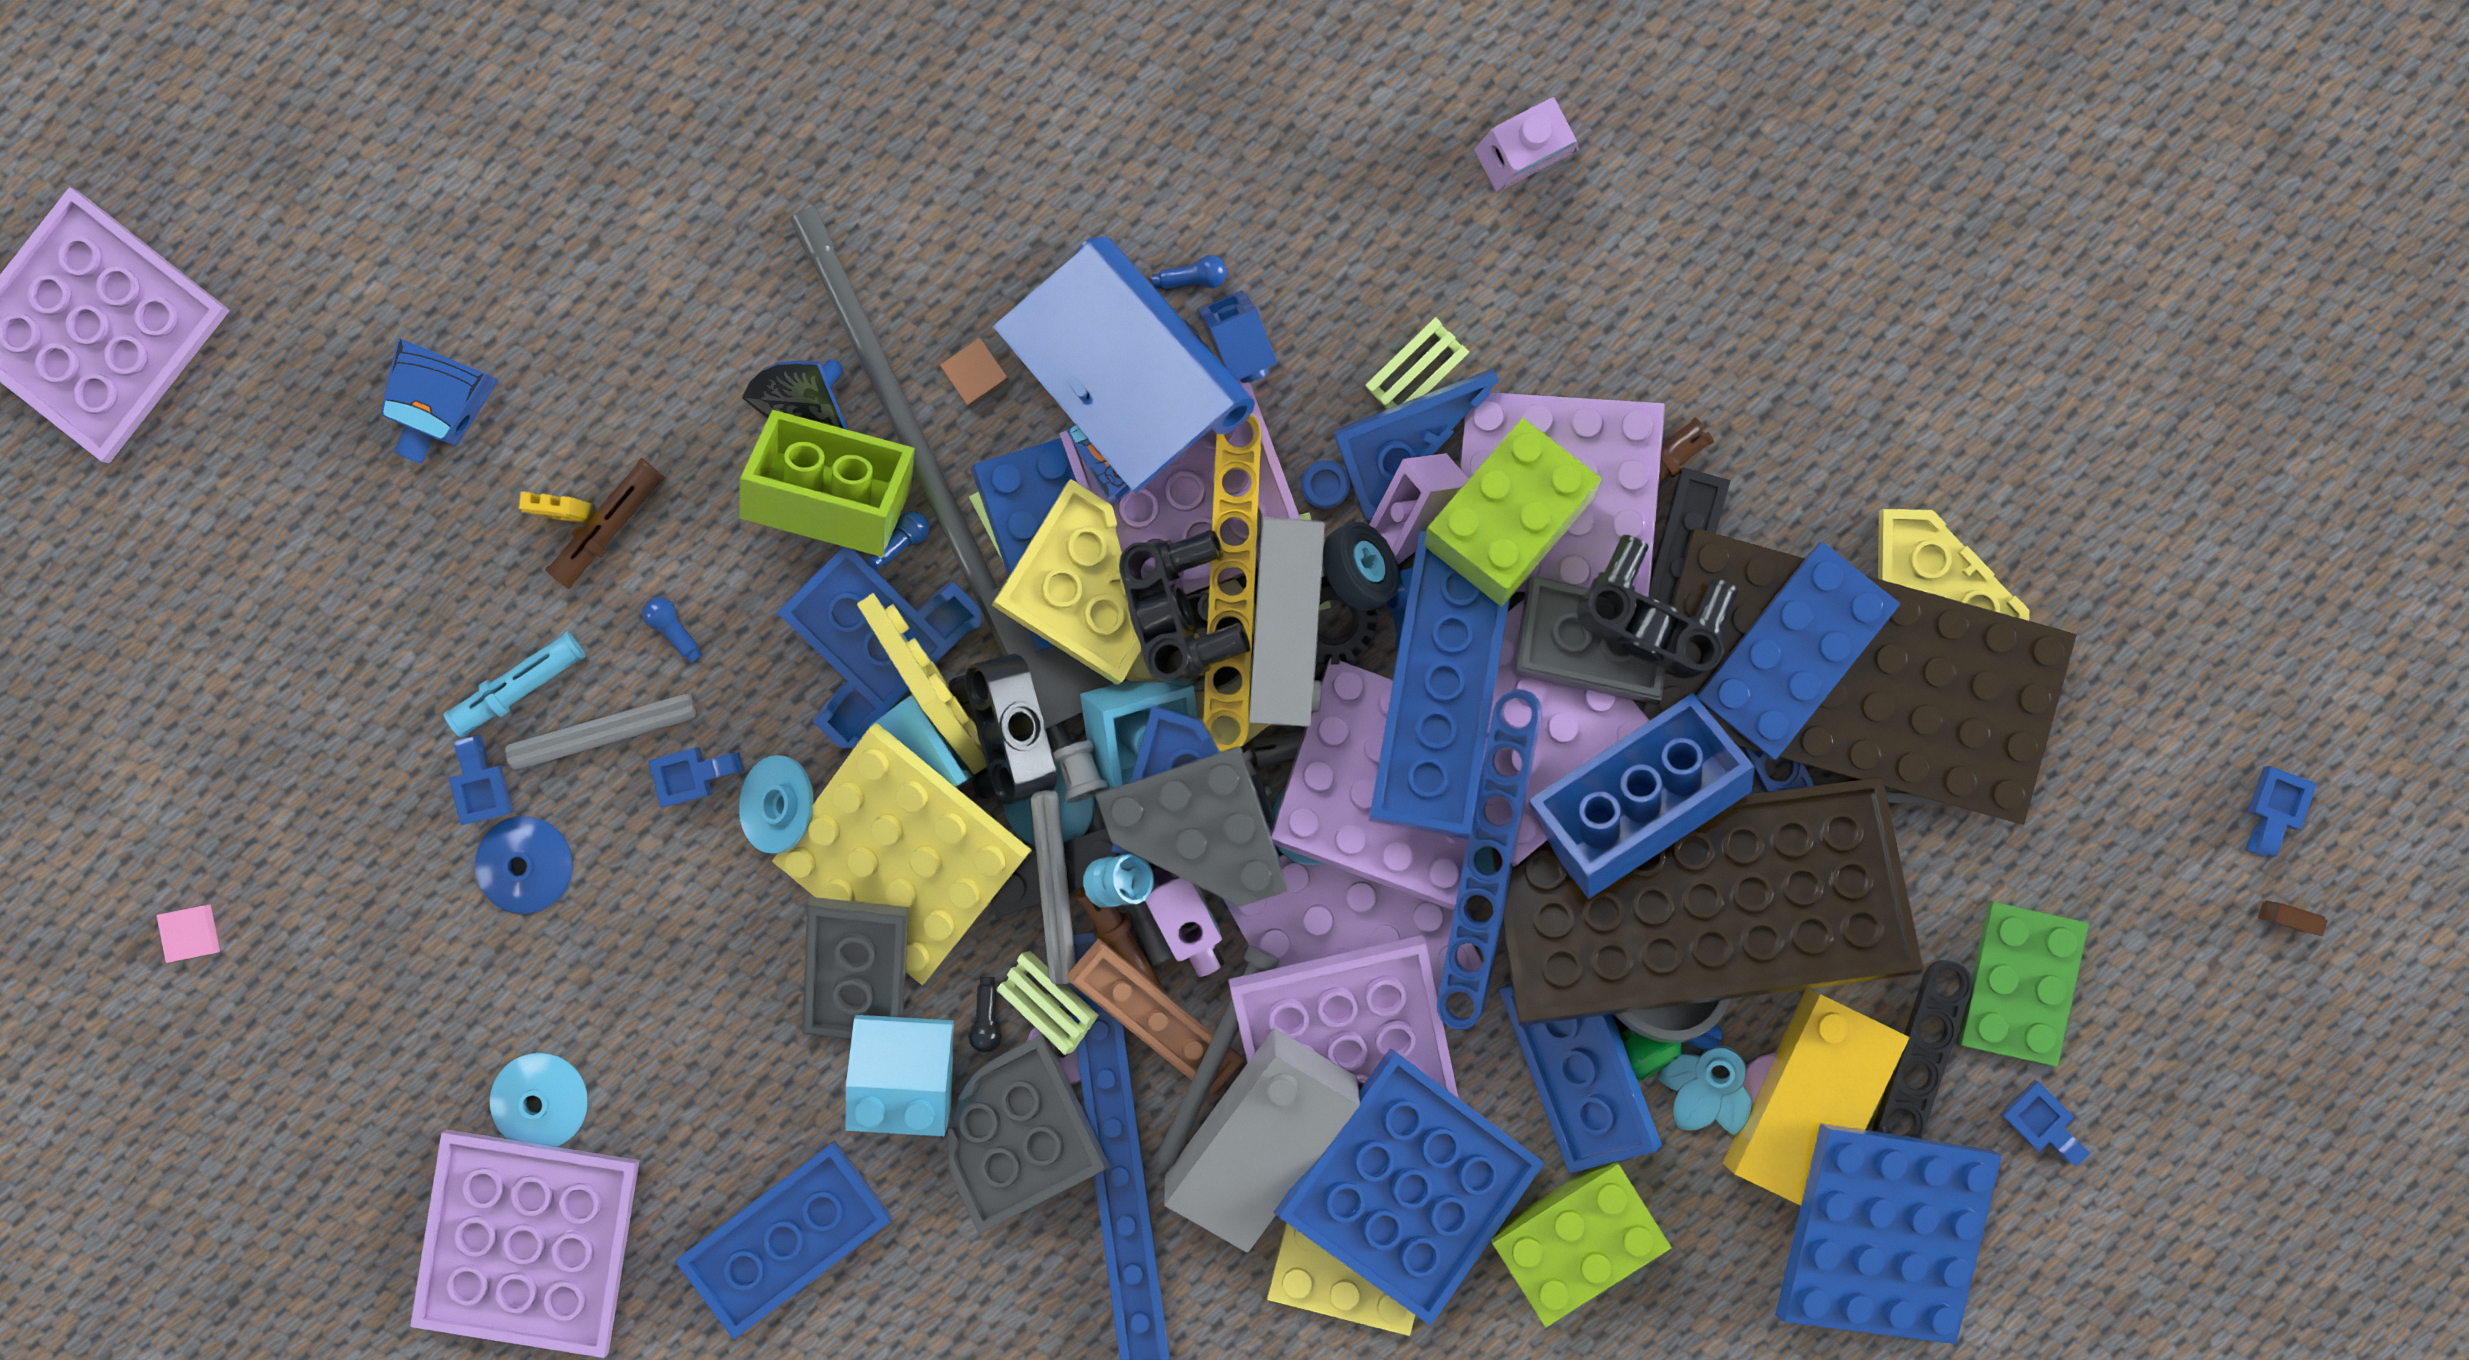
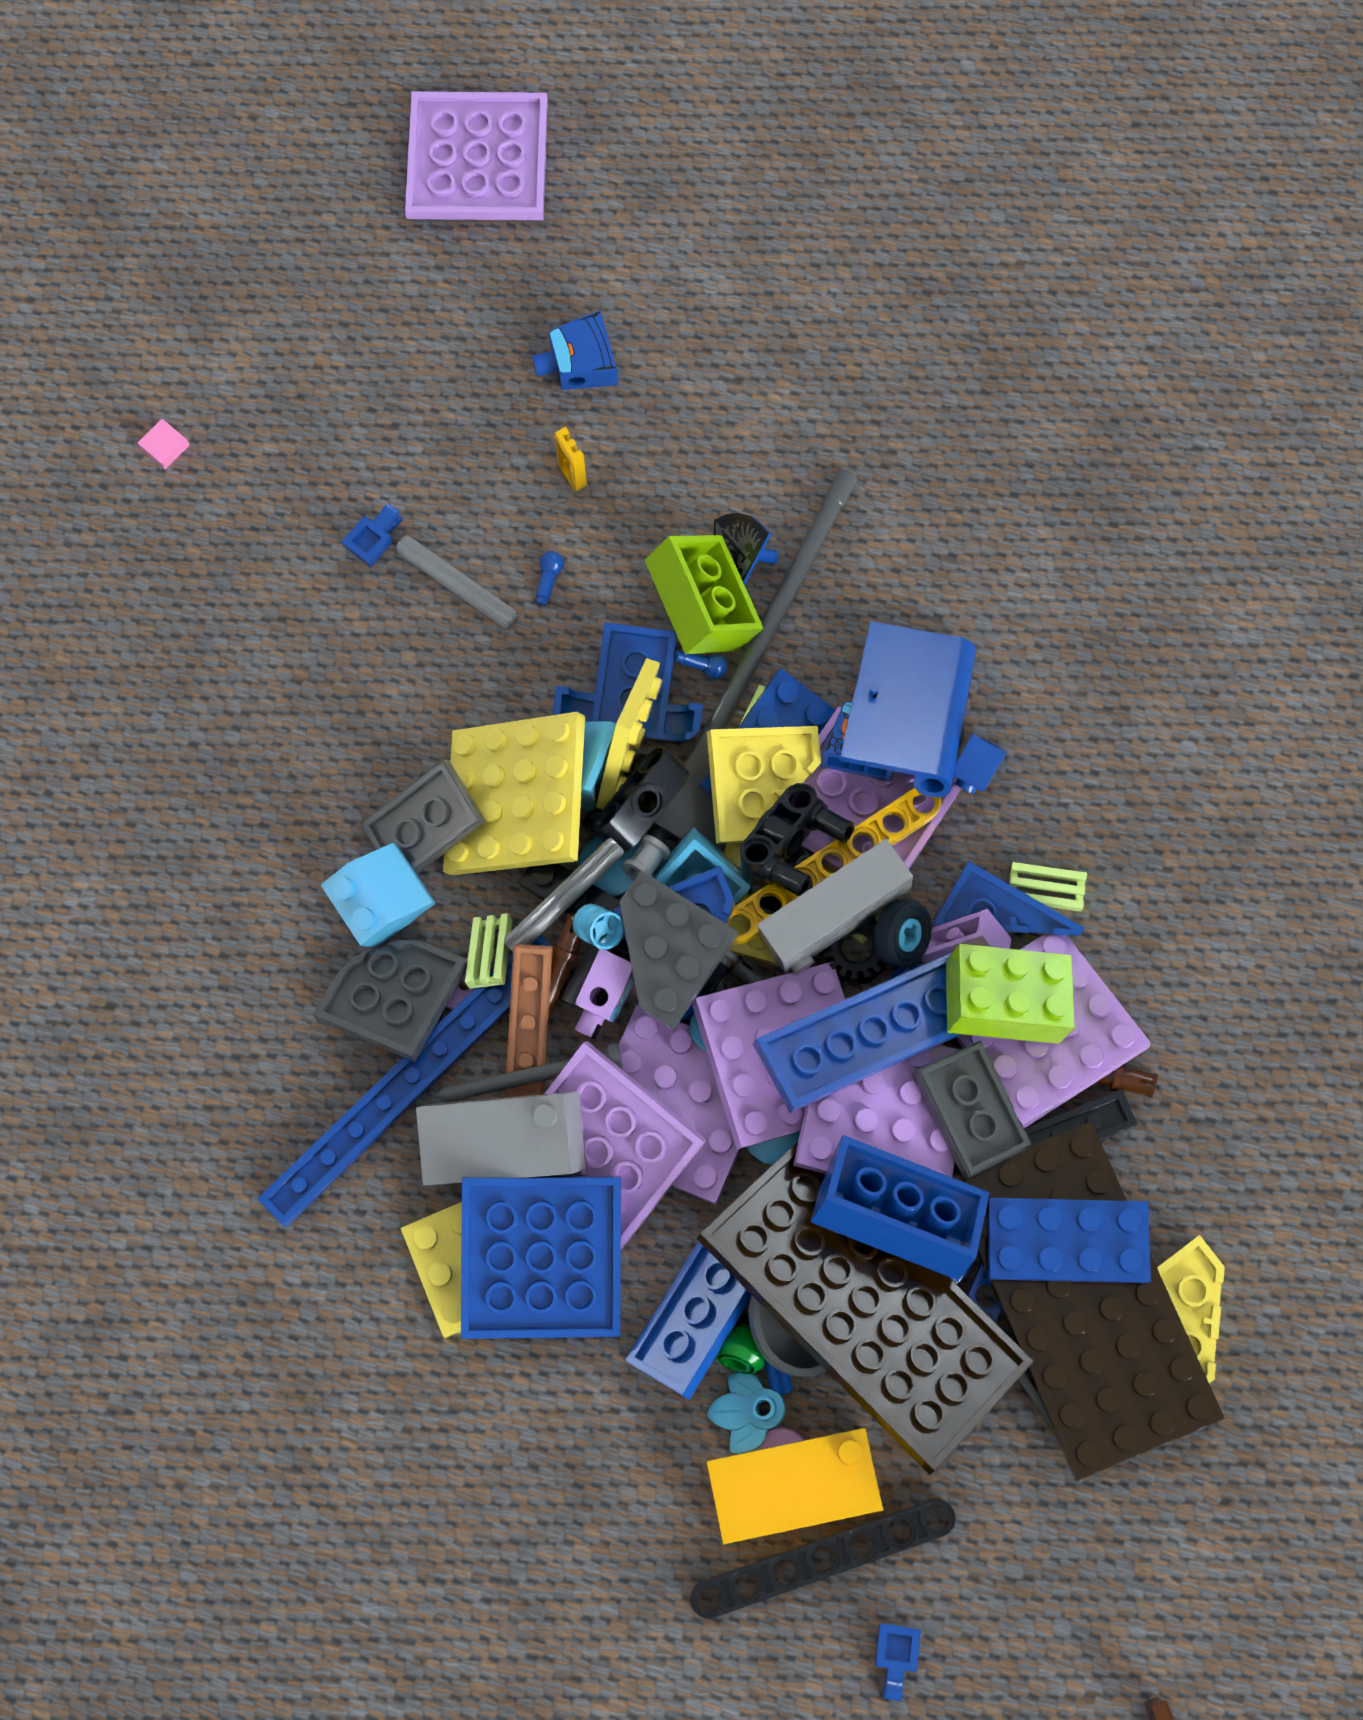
camera: 55 degrees right, 15 degrees down
(498, 695) = (434, 510): medium azure pin -> none
(524, 1243) = (111, 757): lavender plate -> none
(547, 862) = (347, 610): blue dish -> none
(557, 1087) = (212, 718): medium azure dish -> none
(604, 524) = (580, 496): reddish brown pin -> none
(686, 775) = (468, 645): blue plate -> none
(776, 804) = (489, 706): medium azure dish -> none
(784, 1239) = (223, 904): blue plate -> none
(974, 372) = (834, 635): nougat tile -> none
(985, 1032) = (441, 930): black piece -> none
(1206, 272) = (1002, 721): blue piece -> none
(1325, 484) = (933, 884): blue tile -> none
(1504, 839) = (806, 1140): blue beam -> none
(1526, 144) = (1234, 846): lavender torso -> none
(1579, 1241) = (586, 1397): lime brick -> none
(1650, 627) = (1009, 1133): black piece -> none
(1888, 1234) = (743, 1602): blue plate -> none
(2023, 983) = (976, 1571): bright green plate -> none
(2281, 803) = (1229, 1651): blue plate -> none

